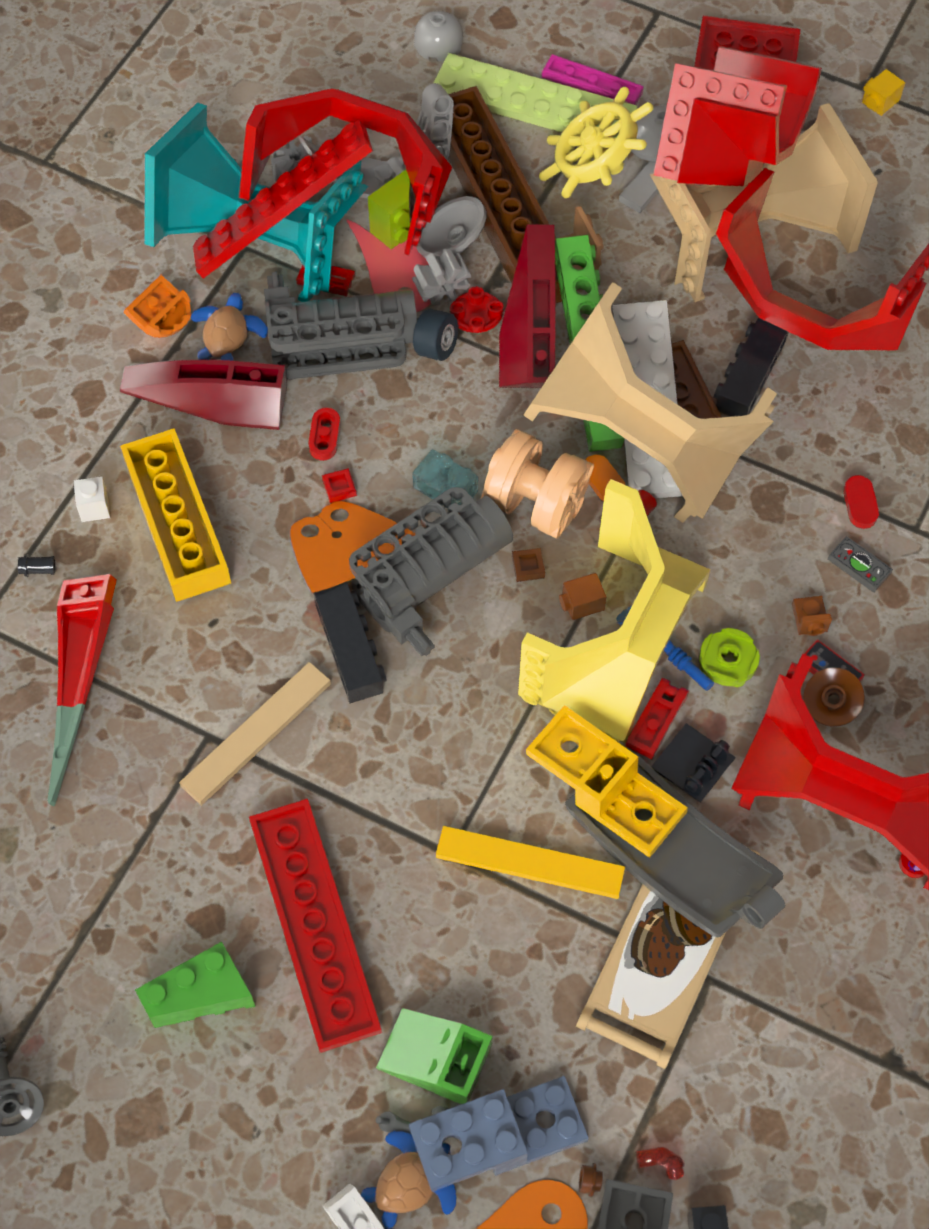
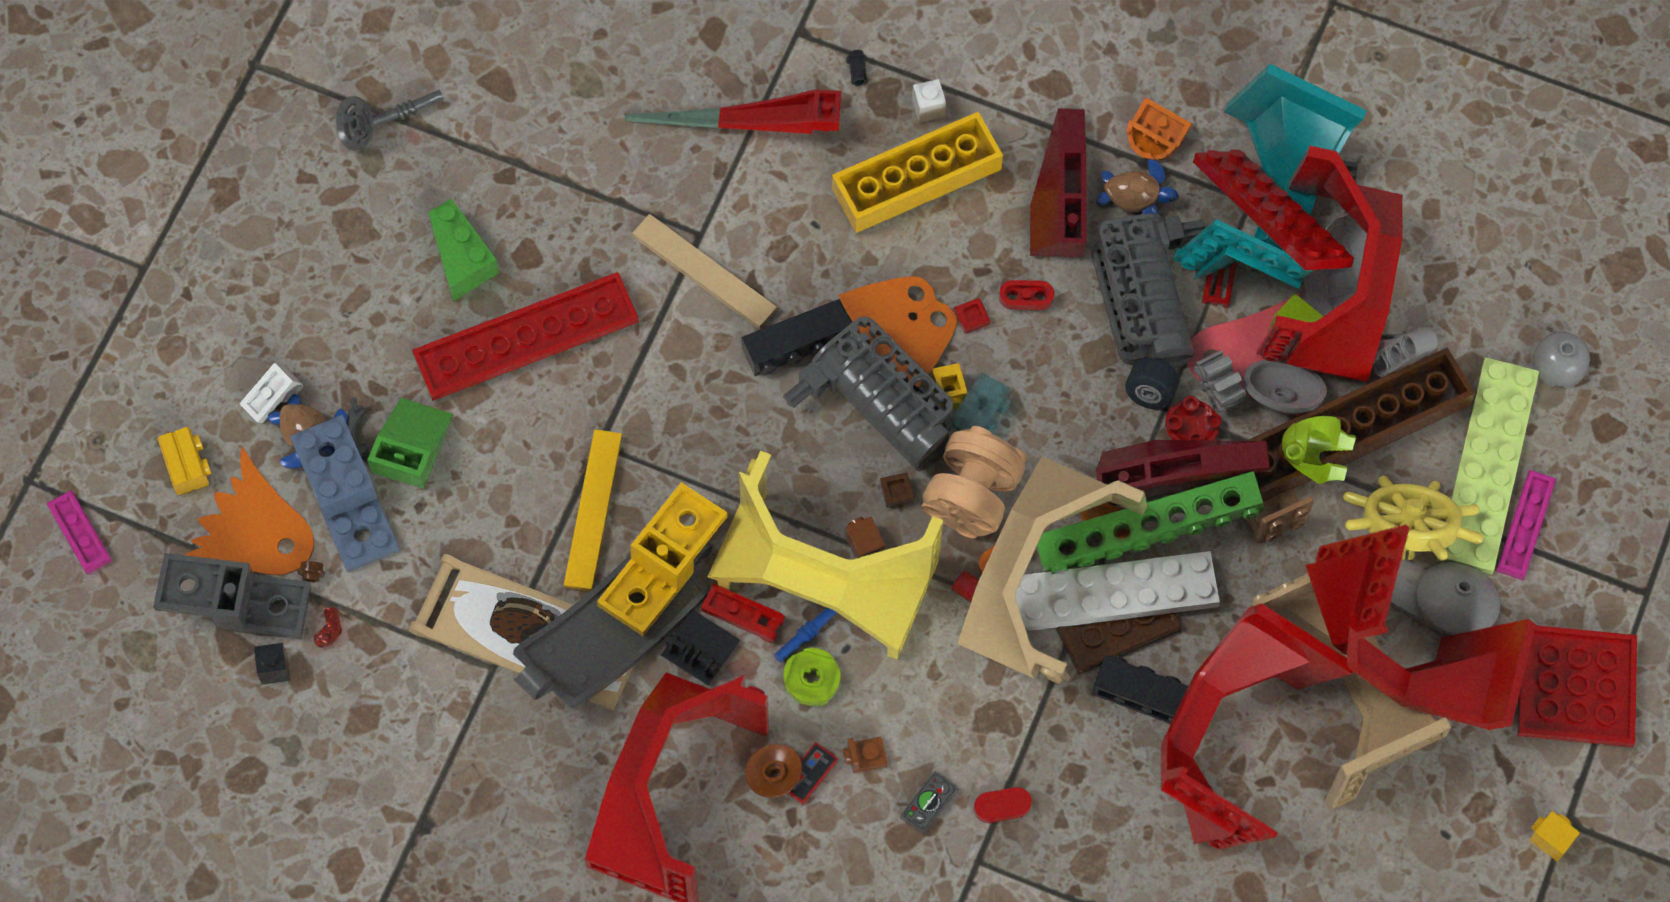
camera: 85 degrees right, 5 degrees up
(416, 498) = (951, 378): none -> yellow brick
(526, 204) = (1309, 438): none -> lime piece

